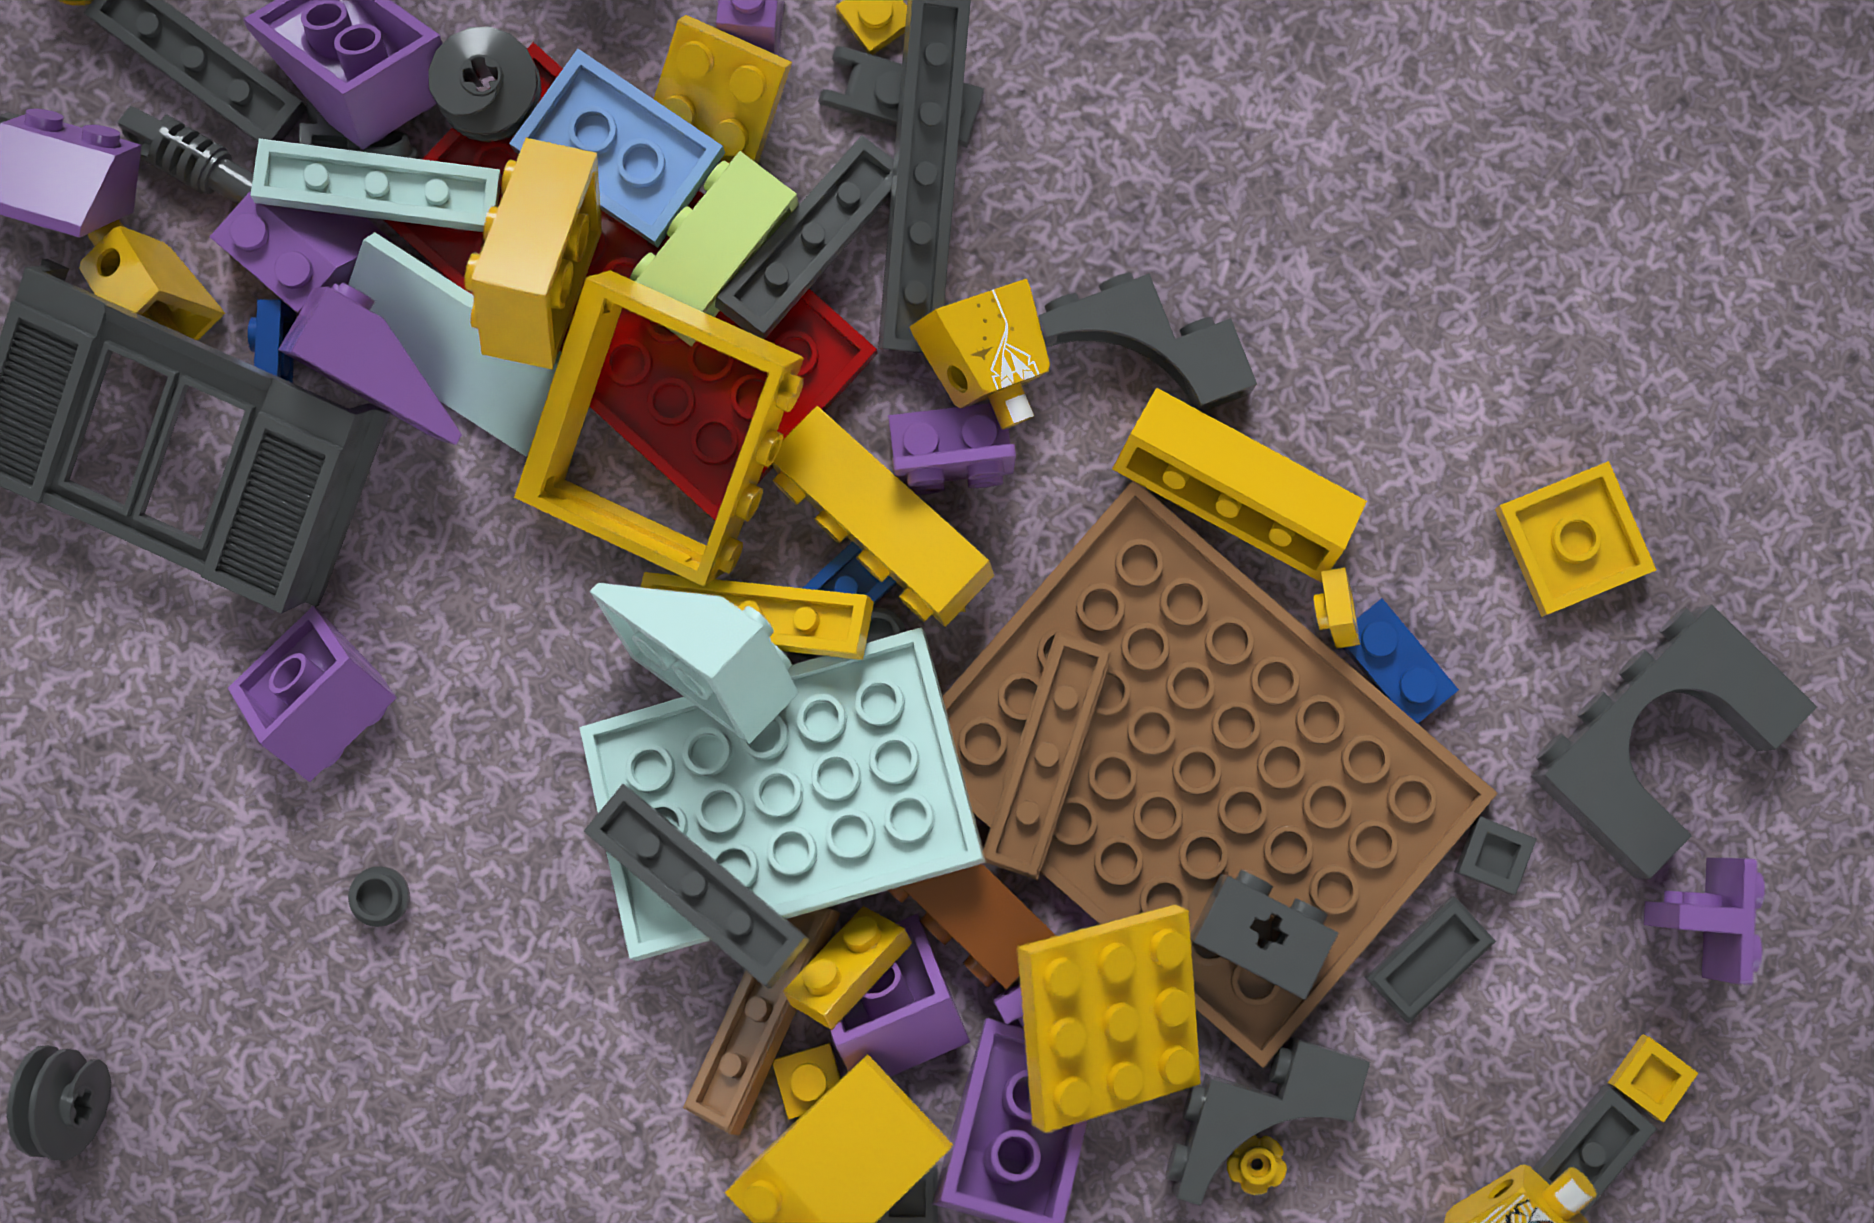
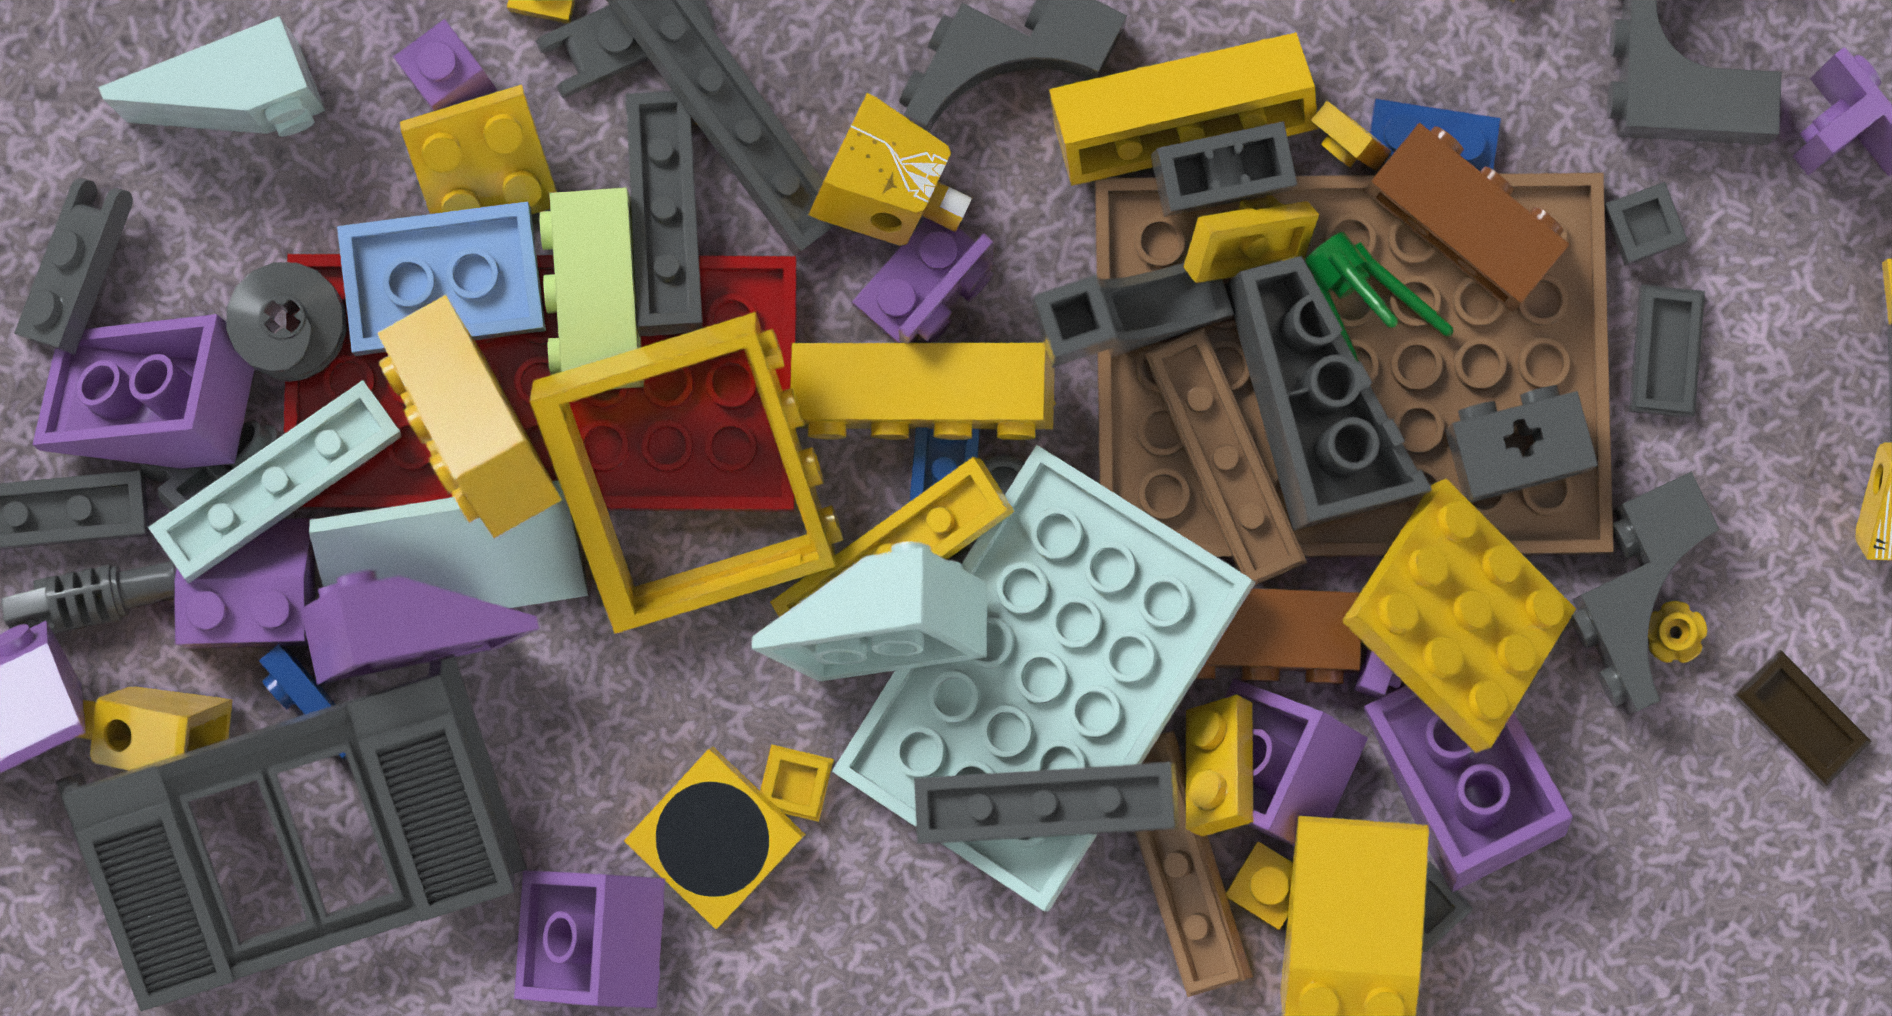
camera: 45 degrees left, 0 degrees up
(459, 700) = (714, 837): none -> black tile
(549, 712) = (796, 781): none -> yellow tile
(1068, 590) = (1125, 312): none -> dark grey arch
(1143, 777) = (1316, 402): none -> dark grey wedge
(1201, 617) = (1249, 238): none -> yellow hinge
(1227, 550) = (1223, 169): none -> dark grey brick
(1249, 695) = (1345, 268): none -> green plant
(1373, 737) = (1468, 215): none -> dark orange brick

